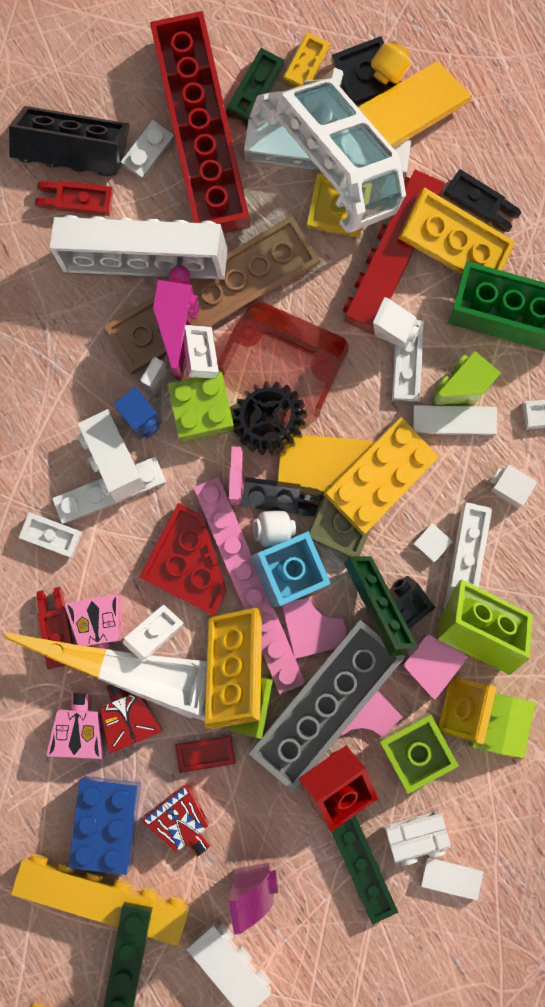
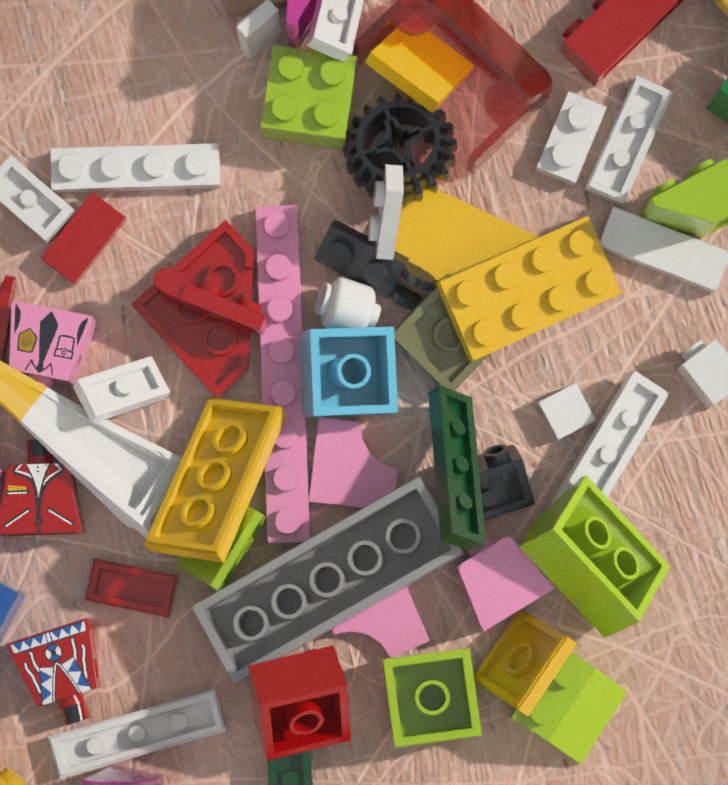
camera: 15 degrees right, 0 degrees up
(93, 546) = (83, 238): none -> red tile
(110, 456) = (154, 118): white brick -> none
(138, 413) = (216, 73): blue brick -> none
(187, 557) = (208, 300): none -> red hinge
(236, 476) = (321, 213): bright pink tile -> none
(243, 843) = (137, 733): none -> white tile
(263, 363) = (420, 66): none -> yellow tile
(276, 454) = (389, 198): none -> white plate
(371, 372) = (571, 138): none -> white plate
(395, 324) = (628, 80): white slope -> none

